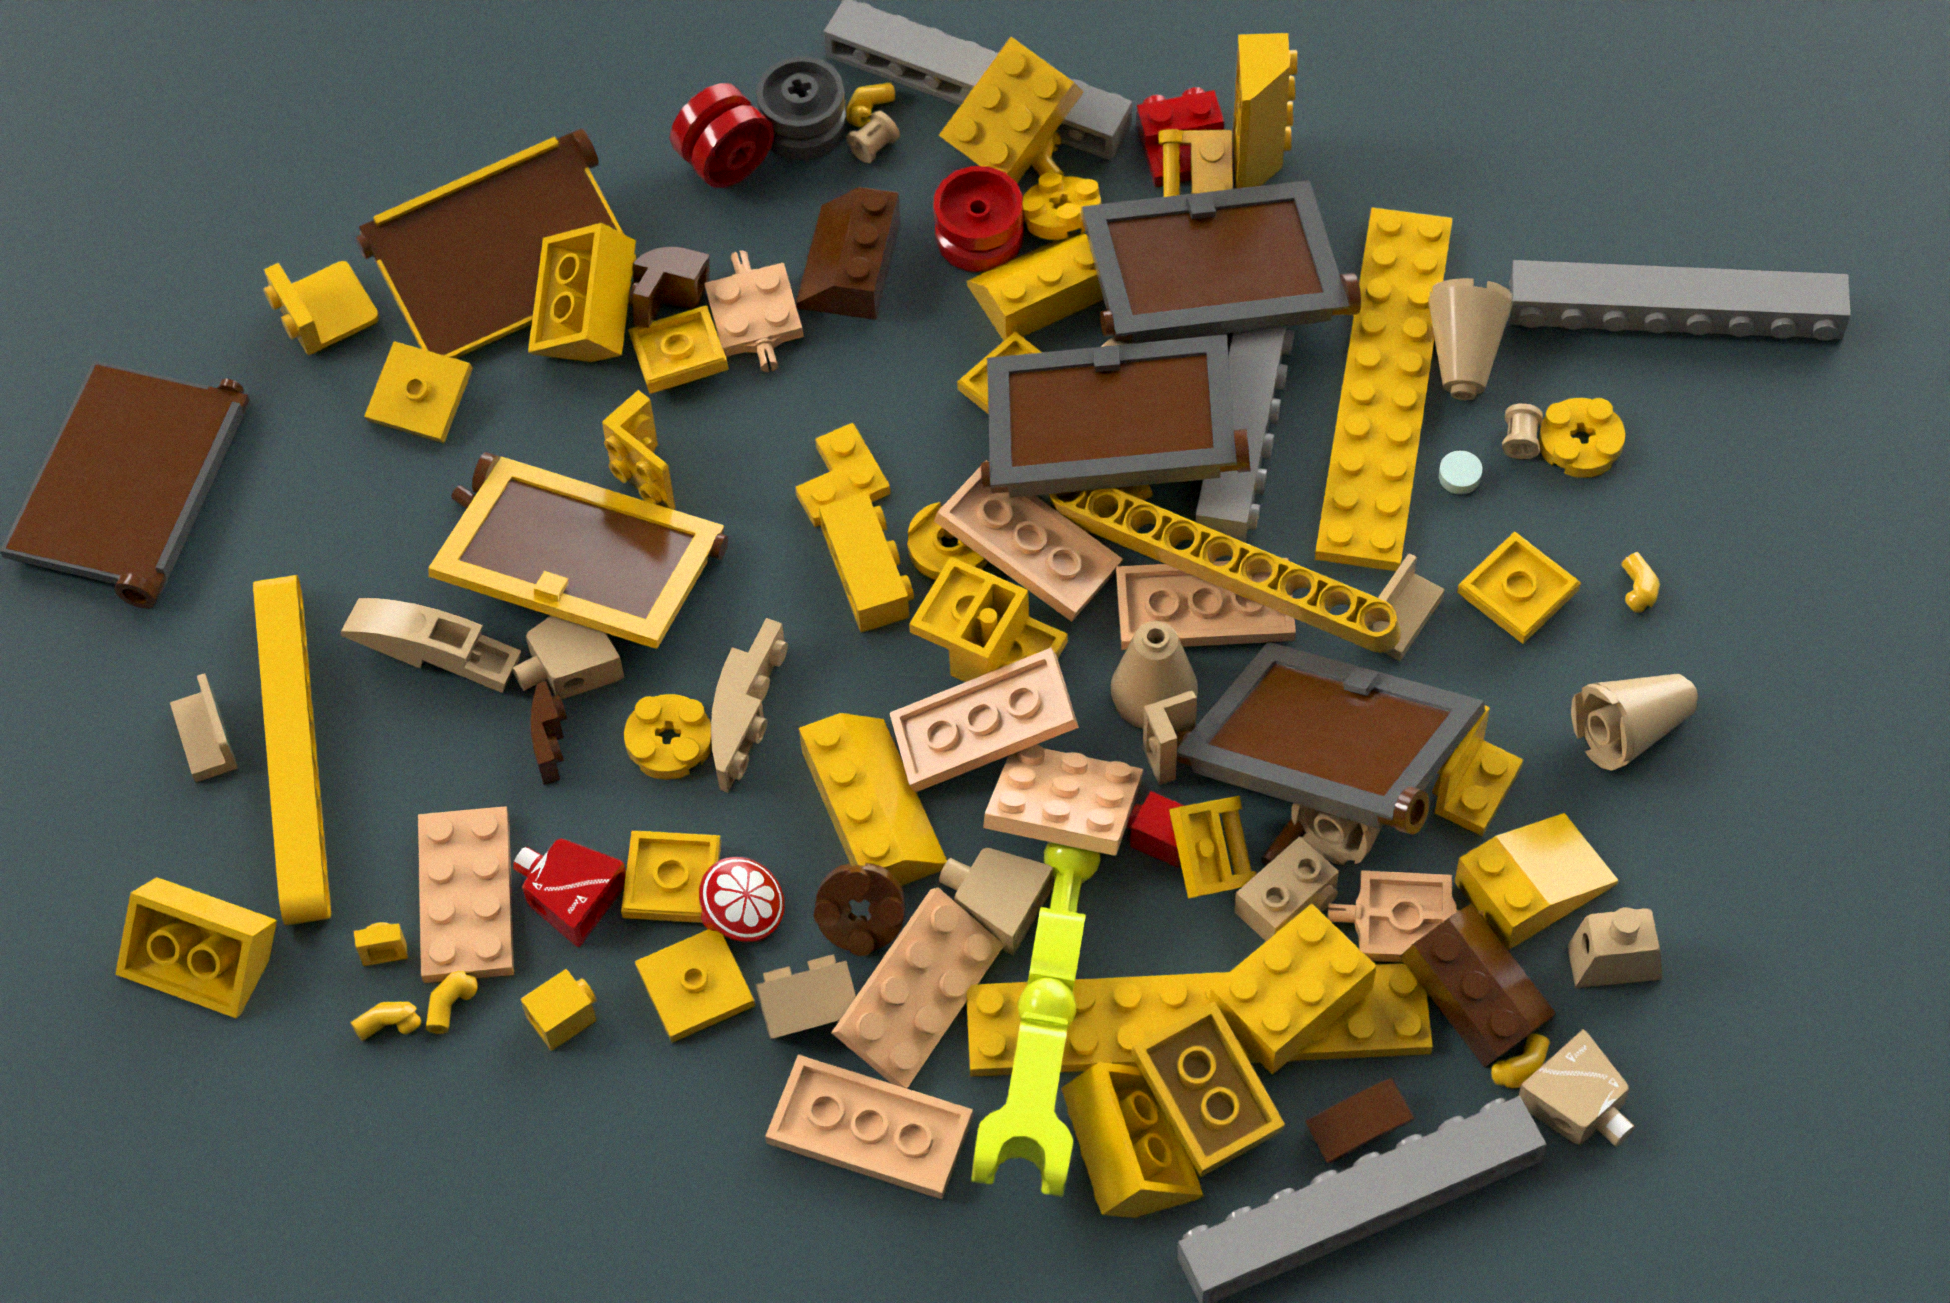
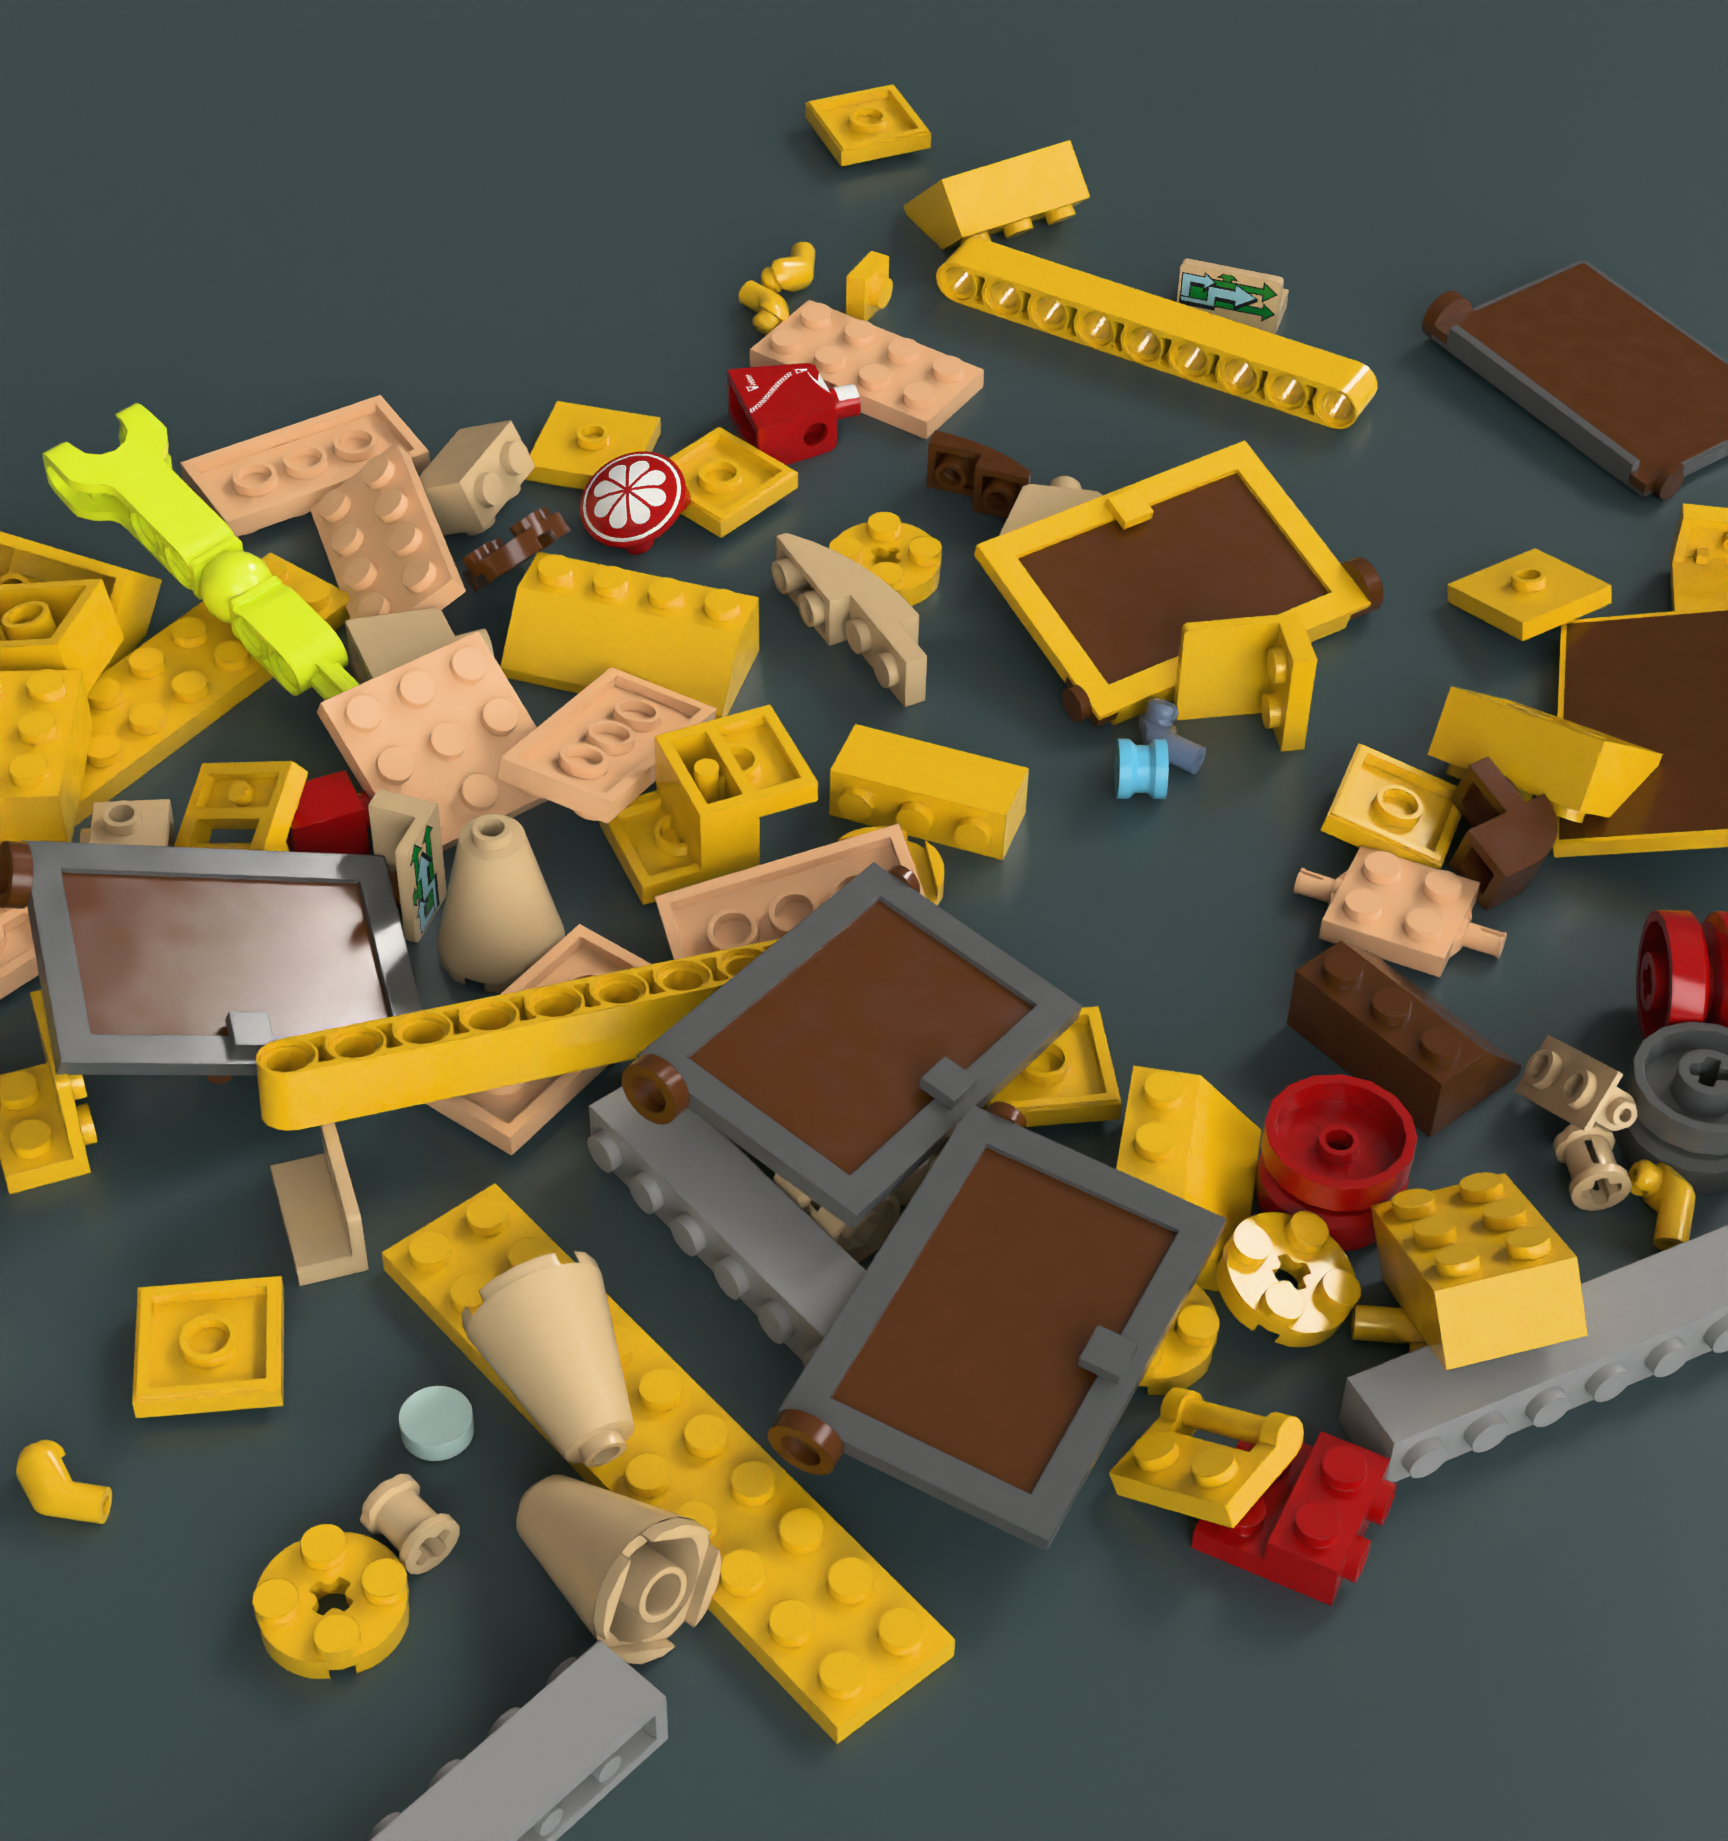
camera: 125 degrees right, 15 degrees down
(150, 1108) = (867, 125): none -> yellow plate
(431, 635) = (1175, 438): tan slope -> none
(560, 1008) = (668, 349): yellow brick -> none
(708, 495) = (1158, 724): none -> sand blue arm
(752, 478) = (1141, 769): none -> medium azure wheel
(840, 156) = (1576, 1087): none -> tan hinge
(850, 474) = (1062, 864): yellow plate -> none
(1262, 106) = (1202, 1494): yellow slope -> none
(1403, 411) = (558, 1353): none -> tan cone

